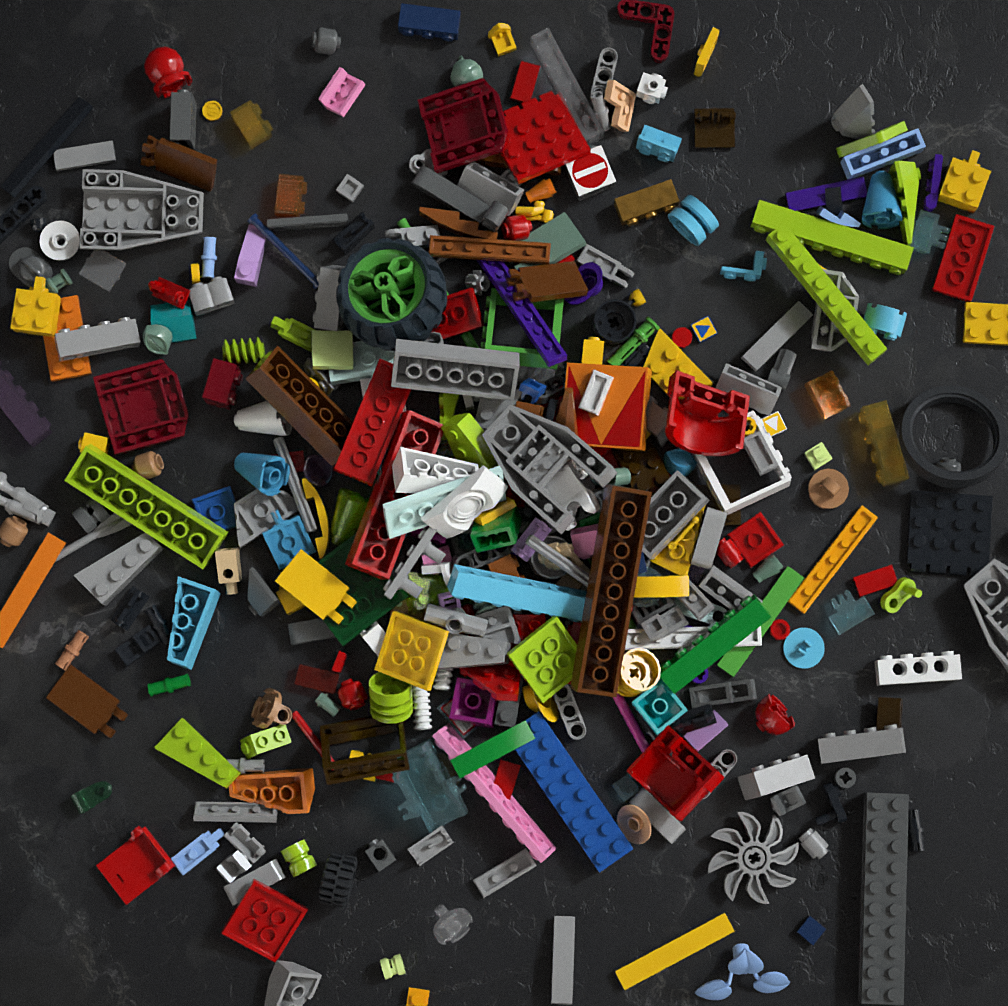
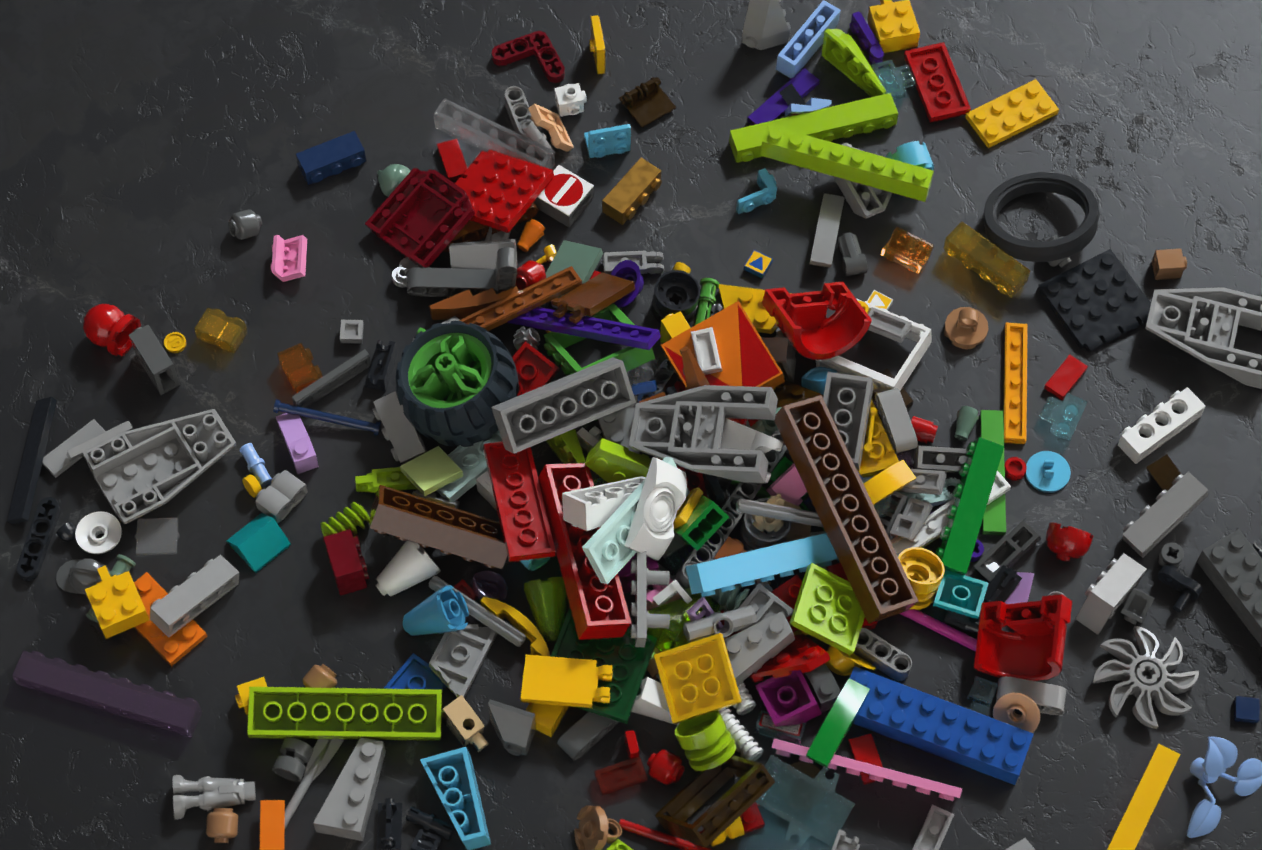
camera: 35 degrees left, 20 degrees down
(103, 164) = (77, 451): none -> light grey tile
(142, 406) = (277, 632): dark red wedge -> none
(157, 338) = (253, 562): sand green hat -> none
(169, 292) = (238, 515): red hinge -> none
(180, 162) = (175, 395): reddish brown tile -> none
(287, 539) = (502, 664): dark azure plate -> none
(327, 704) = (647, 793): sand green pin -> none
(502, 39) = (406, 137): yellow tile -> none
(536, 528) = (738, 522): lavender hinge -> none
(538, 209) = (536, 253): yellow arm -> none
(682, 337) = (744, 279): red tile -> none
(693, 220) = (684, 177): medium azure wheel -> none
(755, 539) = (936, 405): red tile -> none
(761, 392) = (854, 278): light grey brick -> none
(813, 843) = (1189, 629): light grey brick -> none
(818, 456) = (936, 306): yellowish green tile -> none
(872, 140) = (791, 29): lime beam -> none
(881, 203) = (837, 77): dark azure cone -> none
(901, 591) = (1095, 373): lime piece -> none

